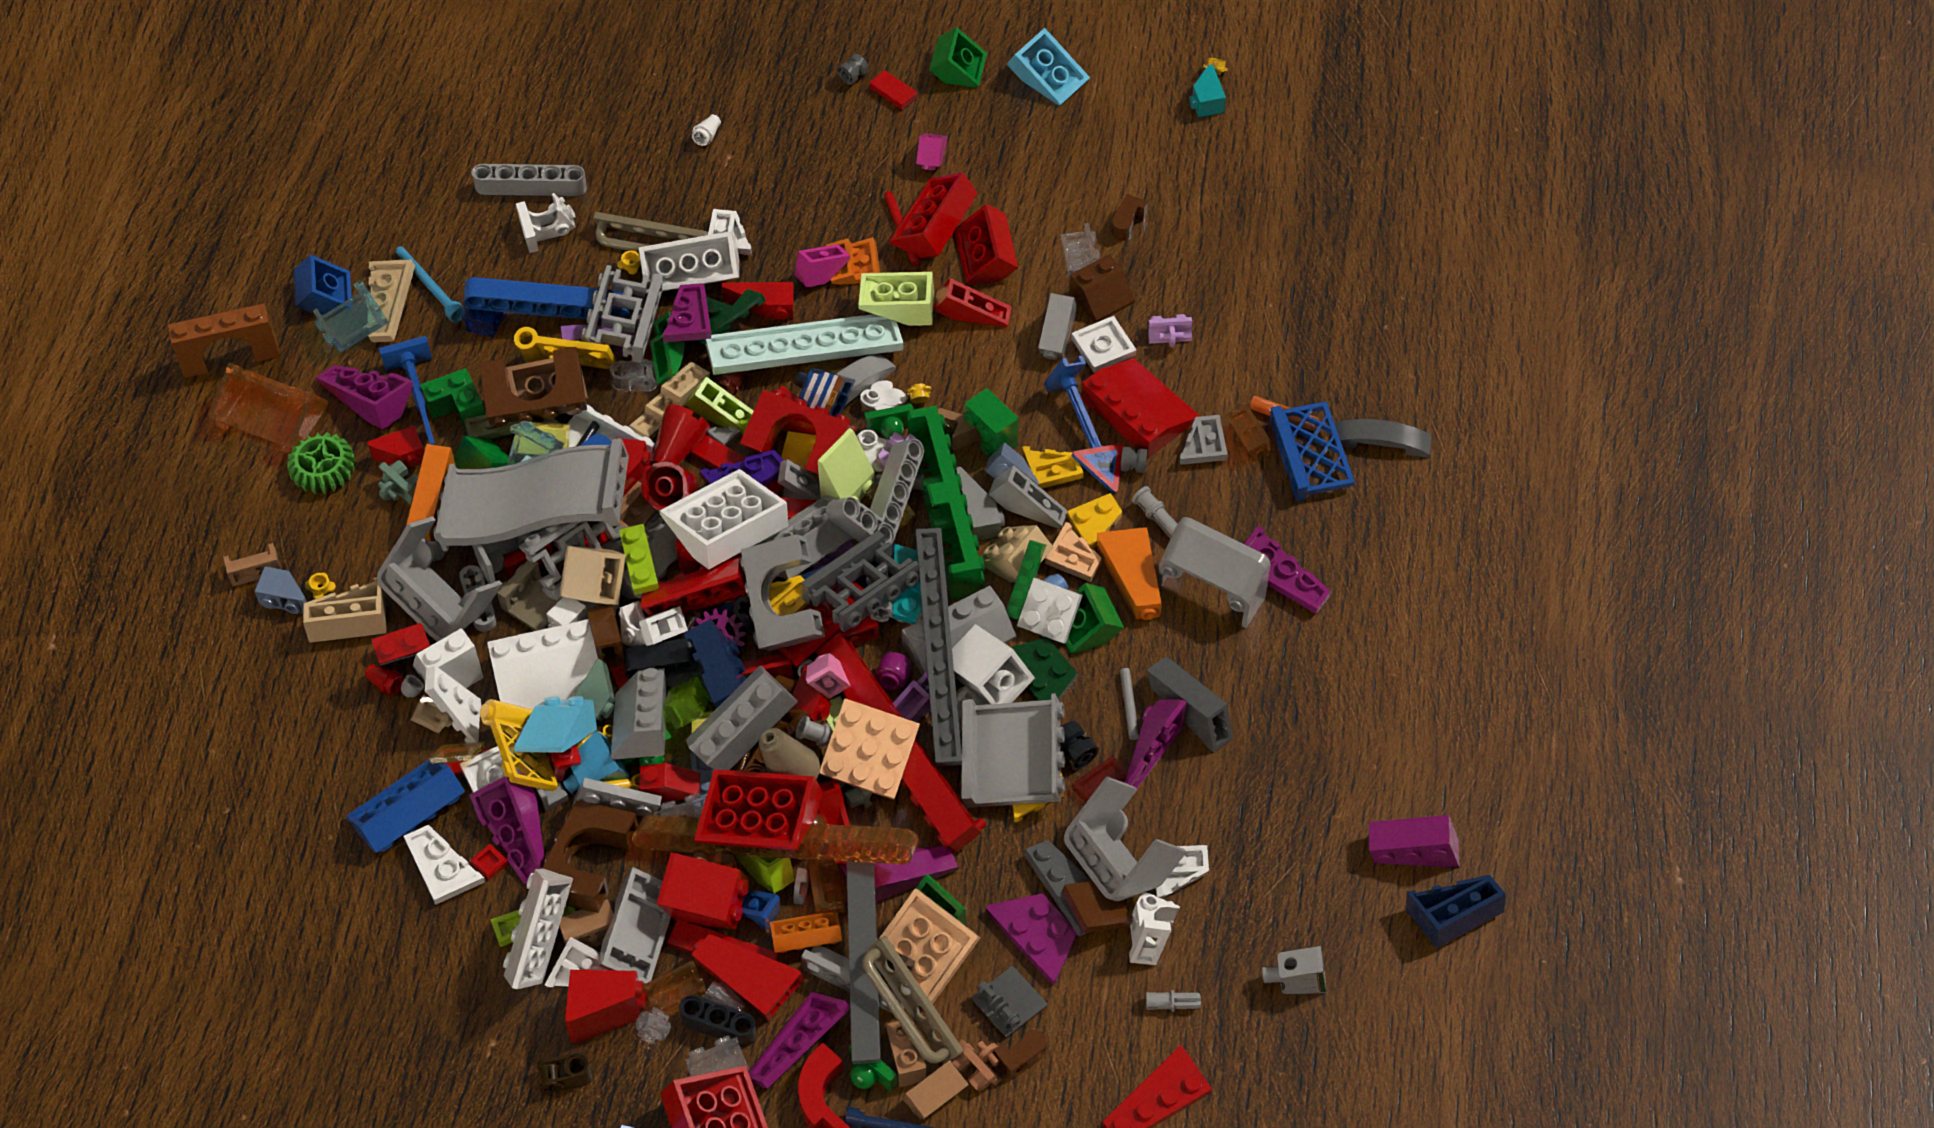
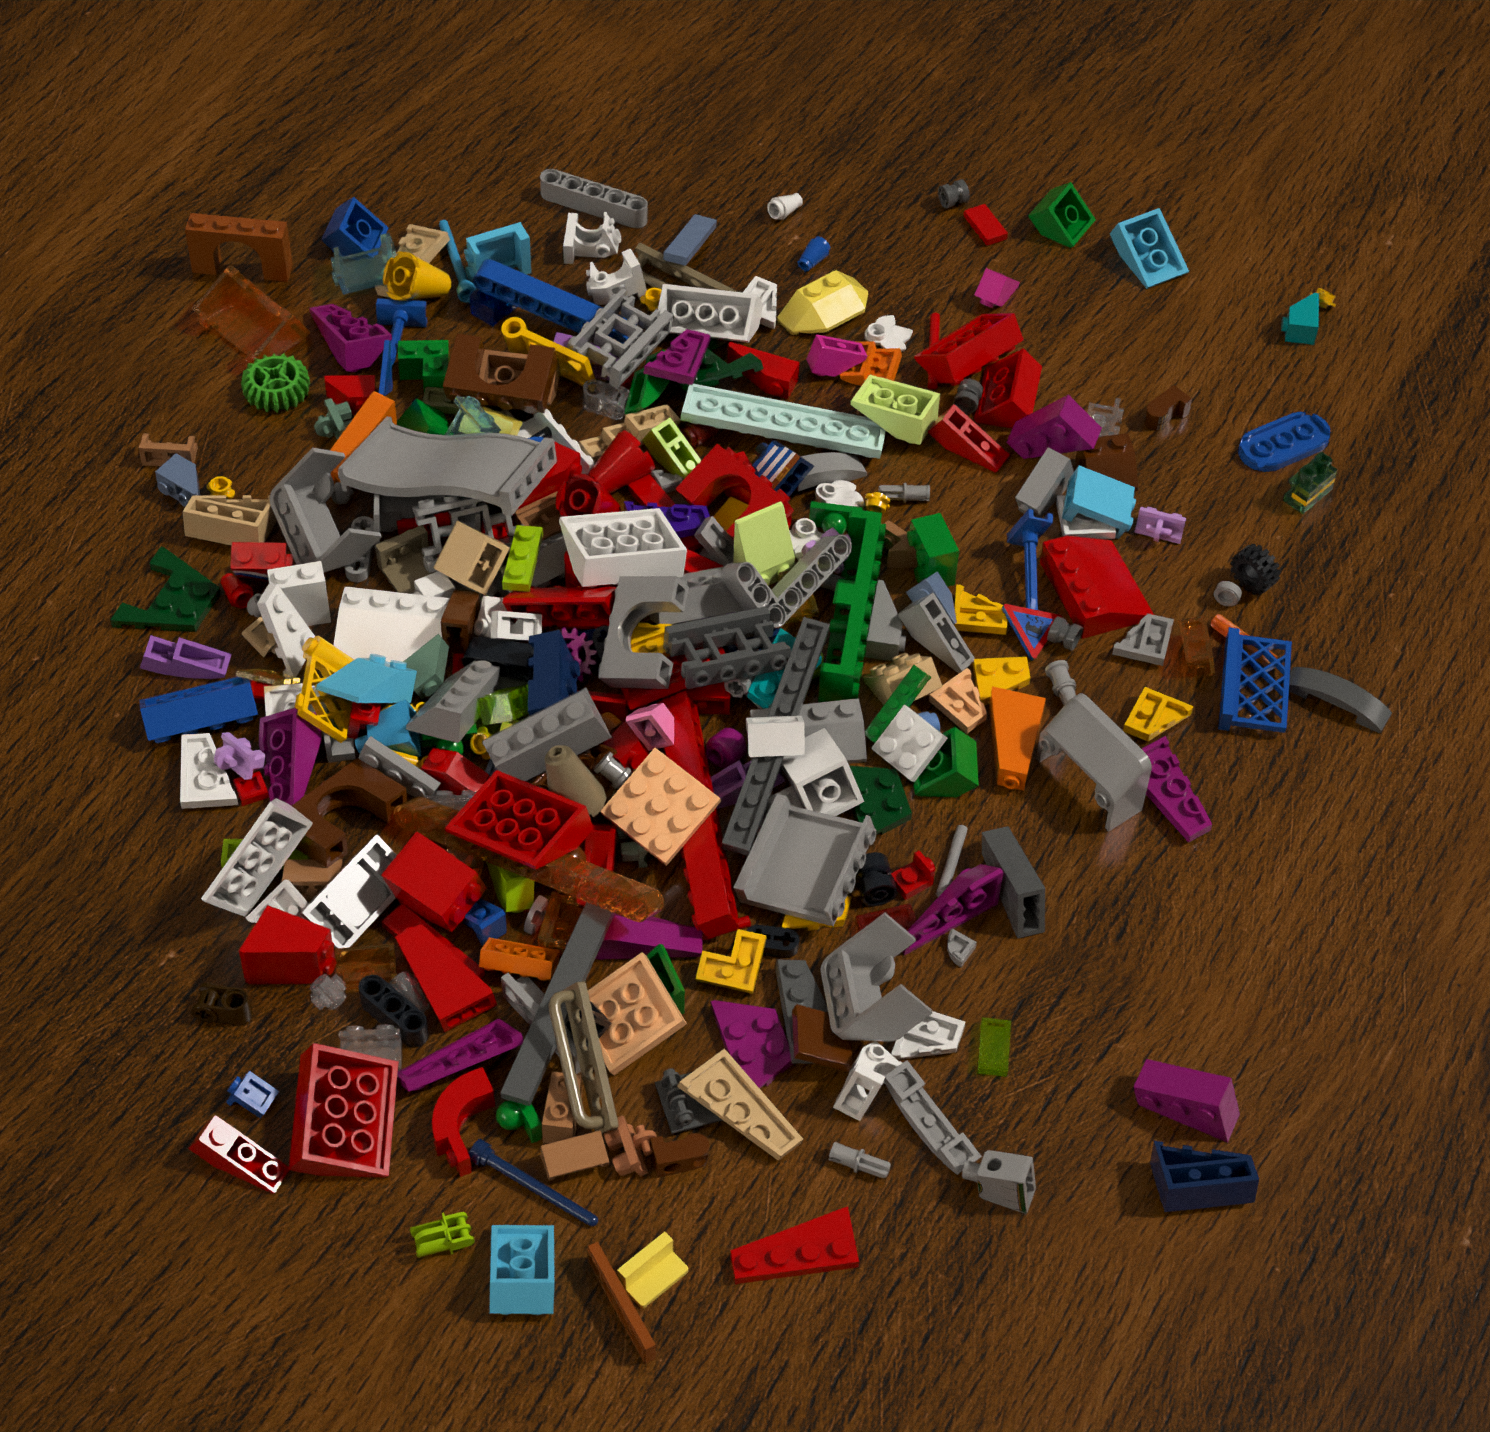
camera: 20 degrees right, 5 degrees down
(337, 707) = (180, 603): none -> dark green wing
(369, 762) = (184, 659): none -> medium lavender slope
(404, 318) = (414, 278): none -> yellow cone
(464, 837) = (238, 756): none -> lavender hips
(470, 261) = (504, 245): none -> medium azure panel
(594, 260) = (627, 277): none -> white tile
(638, 193) = (689, 240): none -> sand blue tile
(673, 747) = (477, 744): none -> yellow plate
(754, 168) = (814, 253): none -> blue cone
(787, 217) = (824, 304): none -> light yellow wedge
(854, 226) = (887, 334): none -> white plate
(939, 374) = (906, 492): none -> light grey axle
(941, 648) = (775, 736): none -> white panel
(953, 265) = (968, 395): none -> dark grey wheel
(996, 871) = (737, 971): none -> yellow plate
(1011, 833) = (775, 940): none -> black beam
(1046, 272) = (1060, 426): none -> magenta wedge
(1053, 989) = (739, 1102): none -> tan wing
(1105, 728) = (914, 876): none -> red bracket
(1110, 325) = (1099, 499): none -> medium azure panel
(1169, 779) = (959, 947): none -> light grey tile
(1214, 944) = (928, 1120): none -> light grey slope
(1237, 857) = (994, 1047): none -> clear neon green tile
(1238, 214) = (1284, 441): none -> blue tile
(1240, 508) = (1155, 714): none -> yellow wing
(1253, 374) = (1227, 593): none -> light grey tile
(1268, 344) = (1255, 569): none -> black tyre
(1280, 247) = (1311, 483): none -> clear green hips

